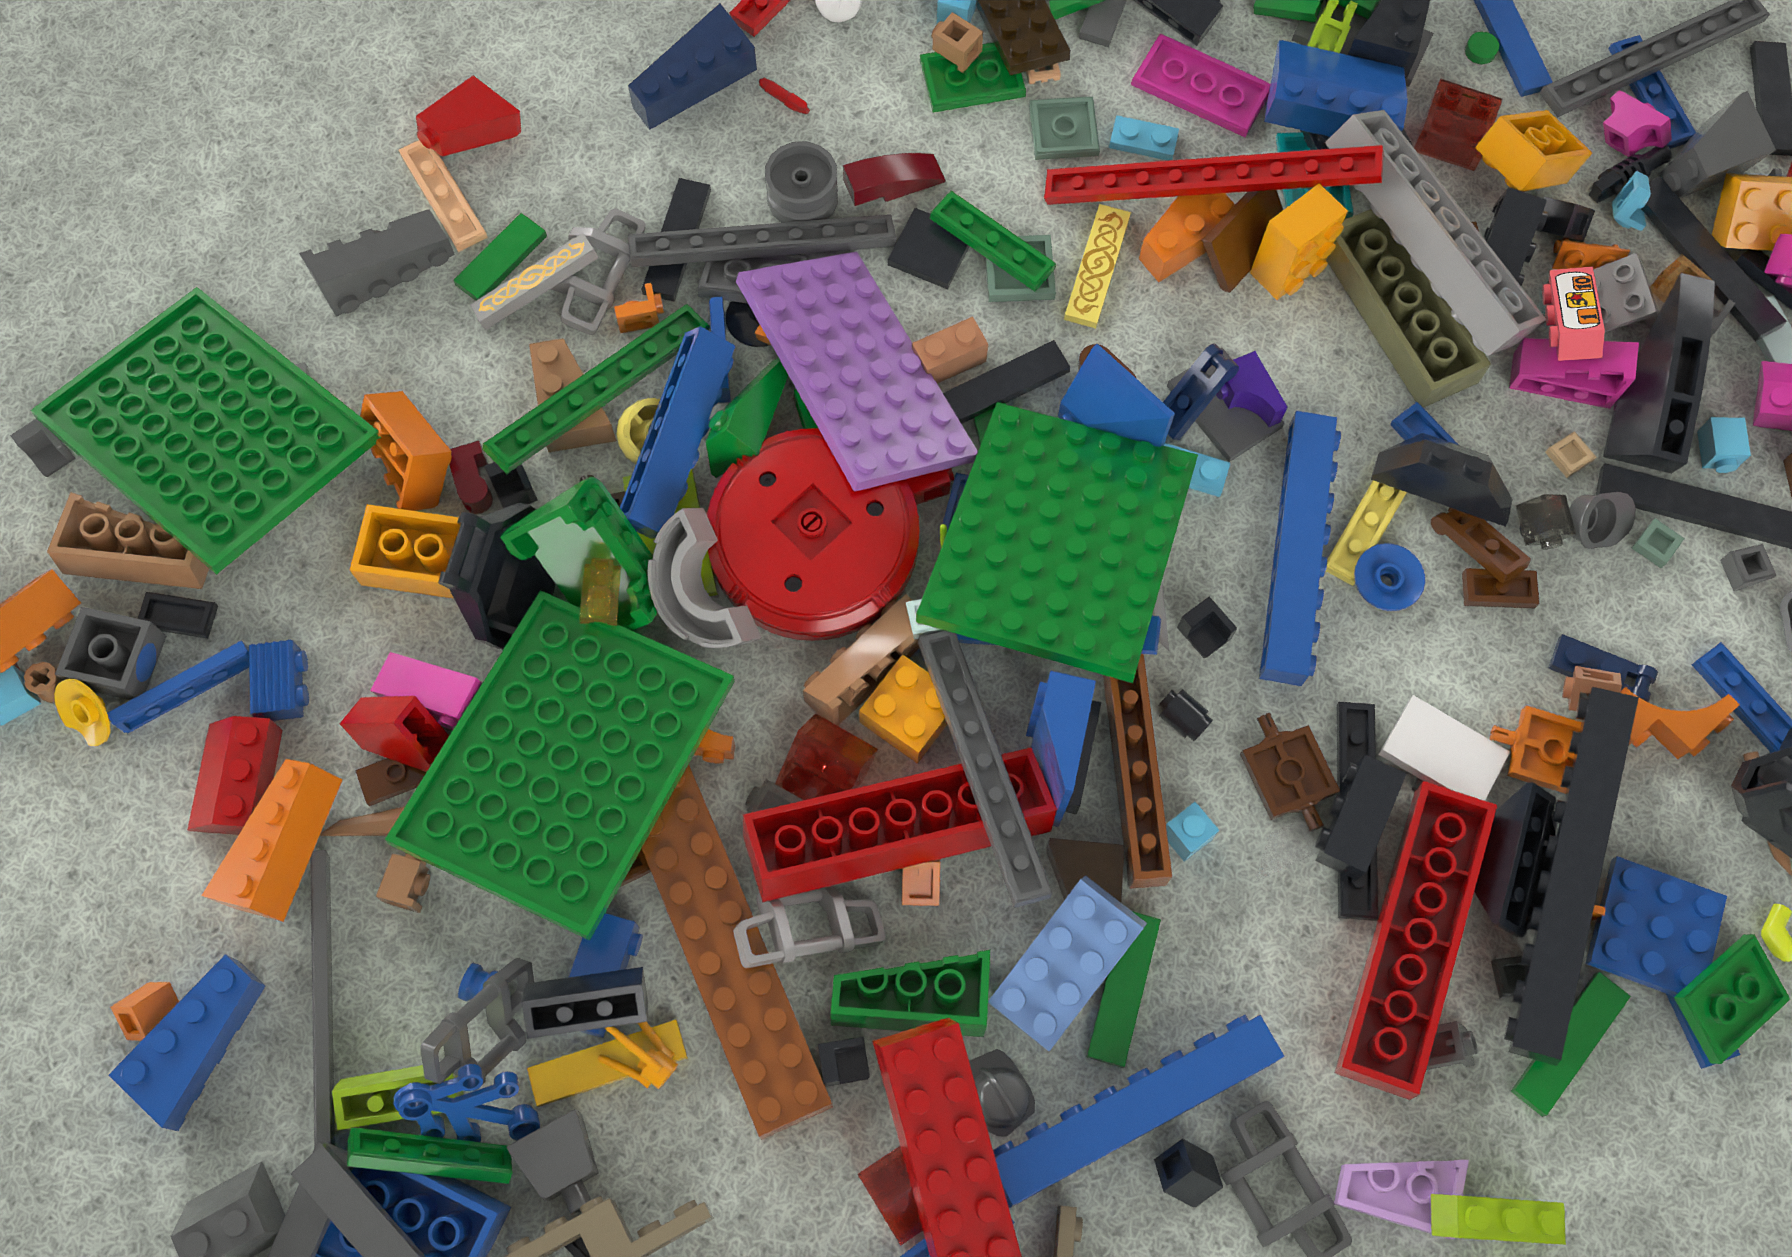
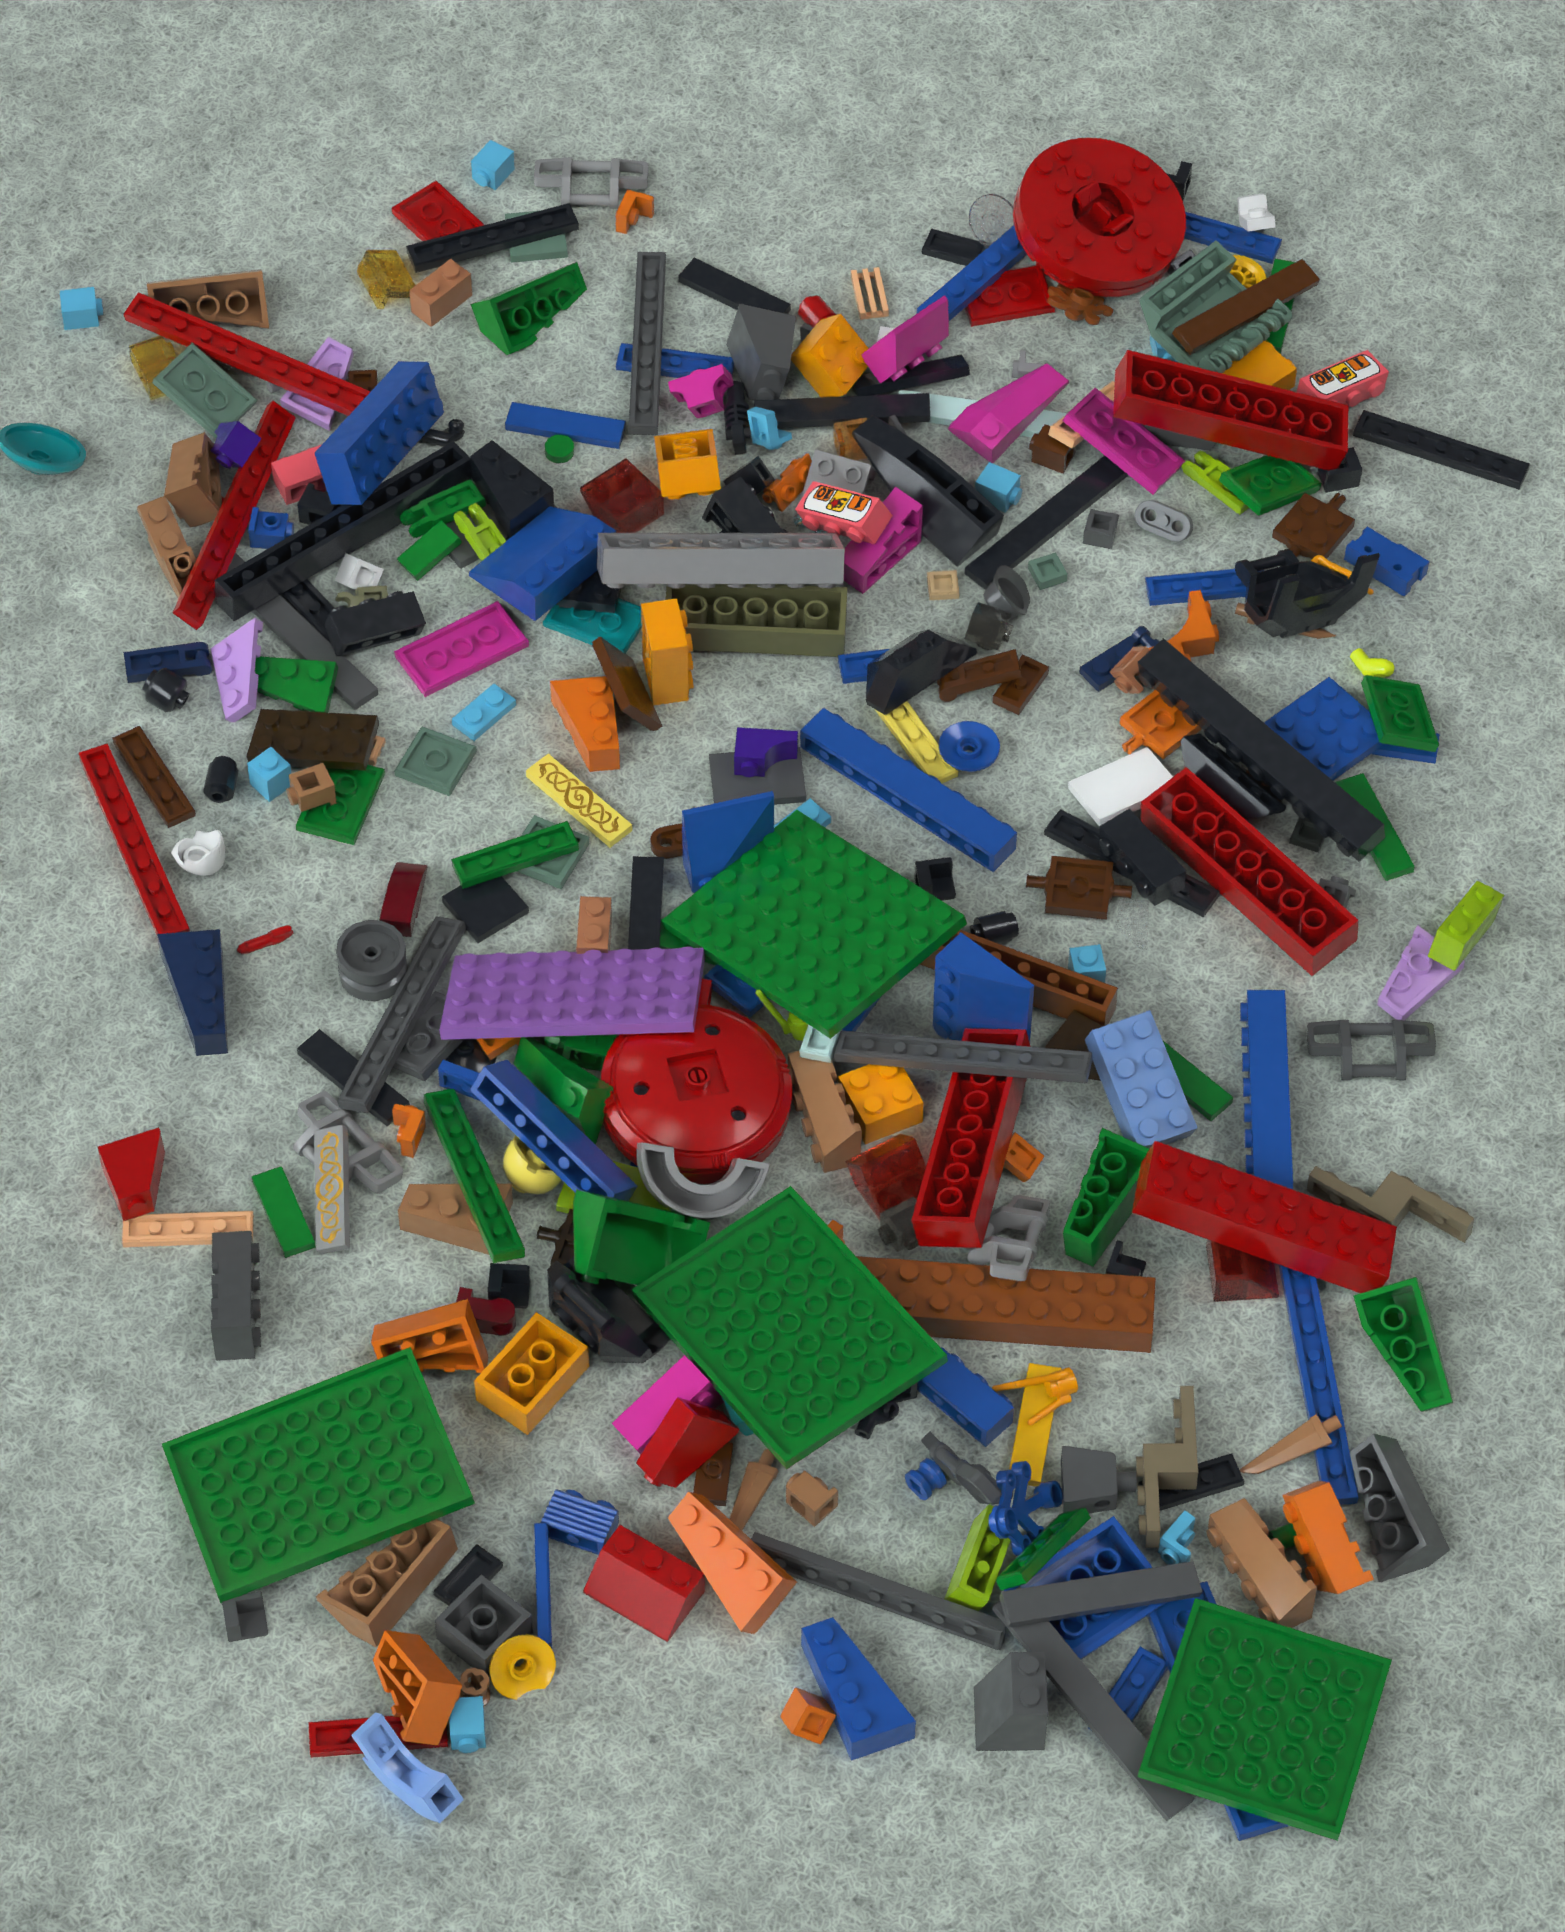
camera: 60 degrees left, 15 degrees down
(585, 1002) = (991, 1389): black brick -> none
(600, 592) = (661, 1246): clear yellow hips -> none
(1188, 1173) = (1330, 1095): black panel -> none
(1198, 389) = (741, 780): dark blue plate -> none
(1216, 175) = (571, 676): red plate -> none

